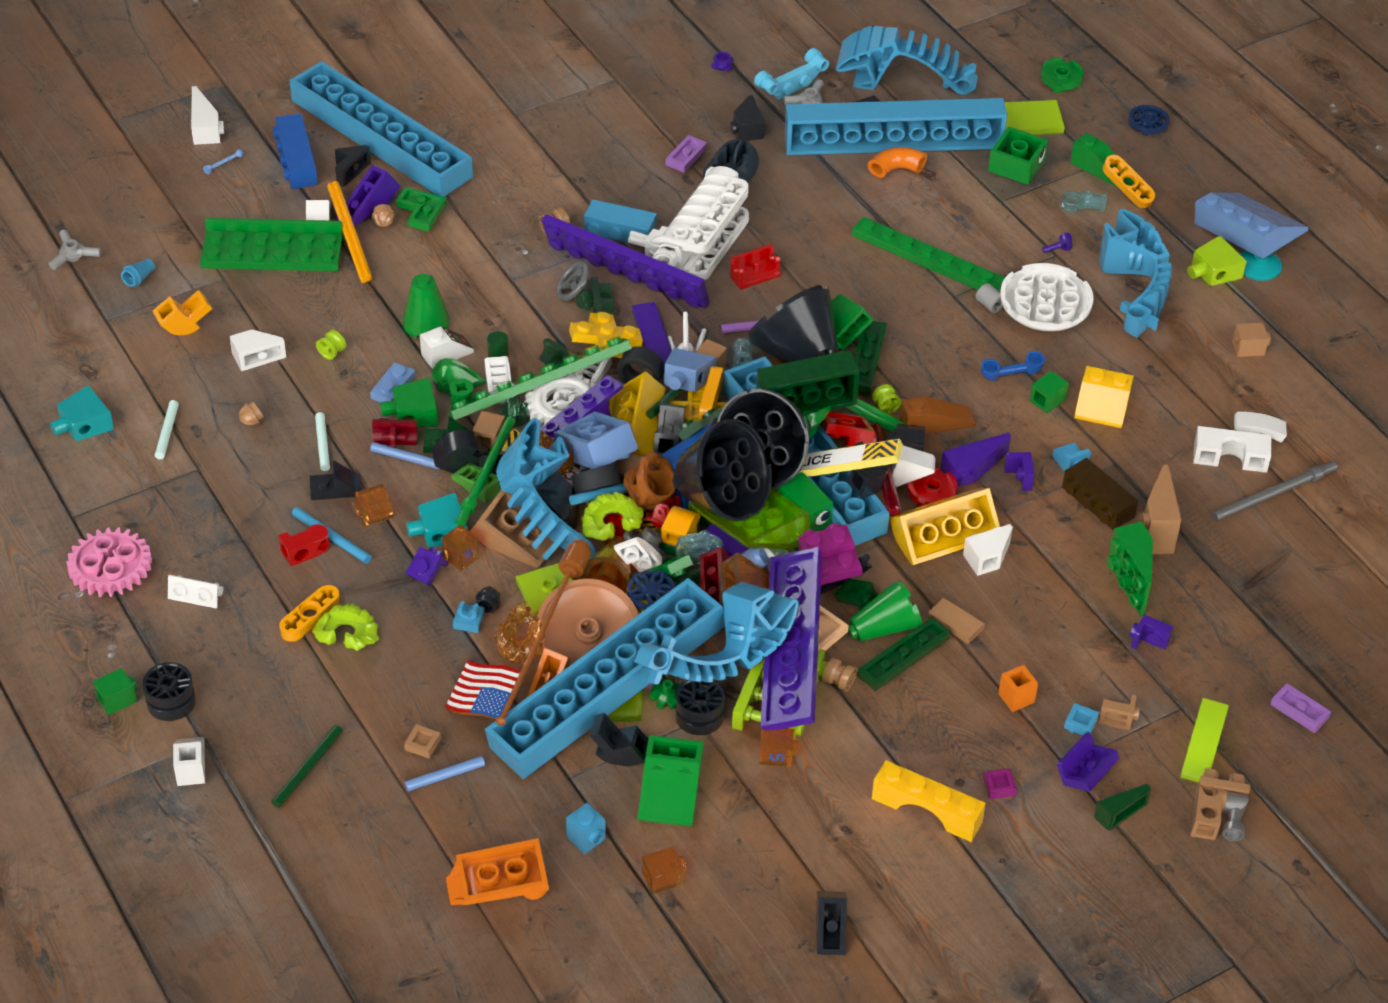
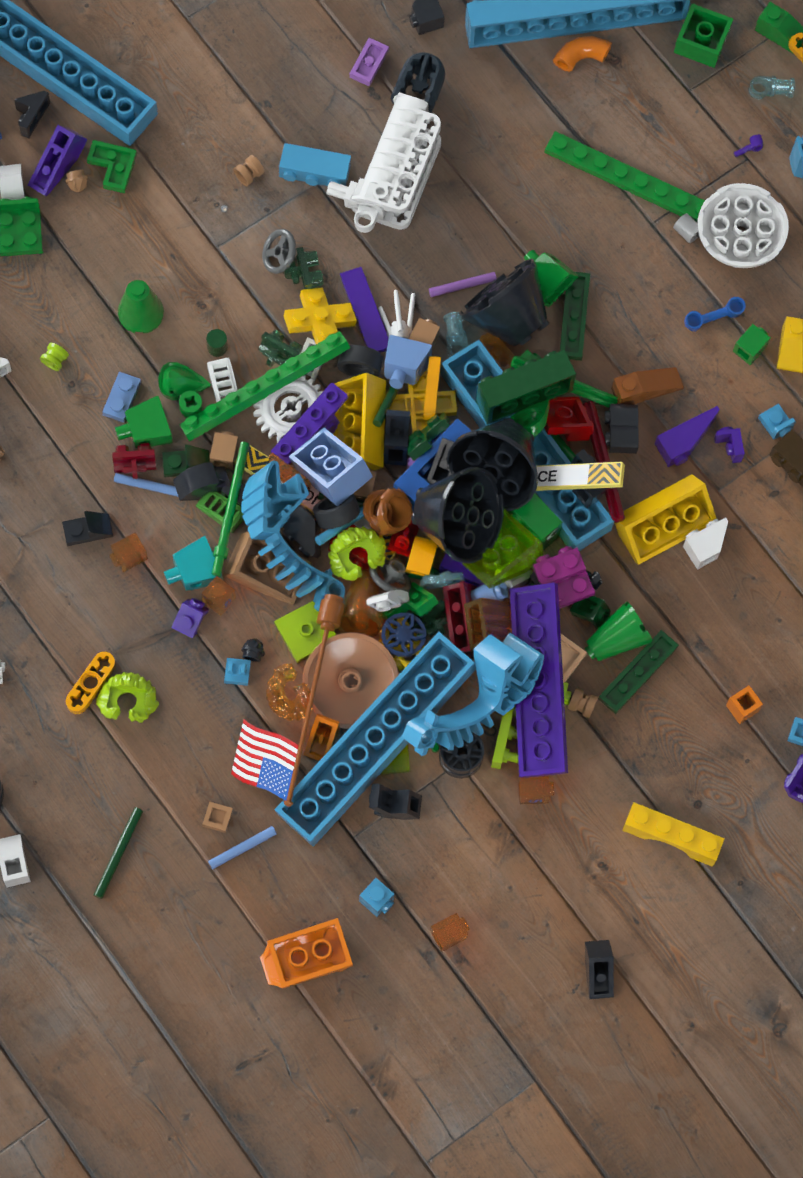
camera: 10 degrees left, 25 degrees up
(304, 544) = (73, 606): red leg -> none
(322, 441) = (66, 476): light aqua bar -> none
(333, 536) = (94, 588): dark azure bar -> none
(349, 232) = (47, 206): light orange axle -> none
(443, 344) = (165, 347): white slope -> none
(516, 409) = (245, 425): clear green gear -> none
(626, 261) = (319, 221): dark purple plate -> none
(670, 780) = (445, 840): green slope -> none
(754, 267) = (454, 212): red hinge -> none
(886, 399) = (597, 370): lime wheel -> none
(912, 466) = (633, 454): white slope -> none
(922, 495) = (654, 462): red plate -> none
(956, 620) = (682, 626): medium nougat tile -> none
(999, 783) = (733, 803): magenta tile -> none

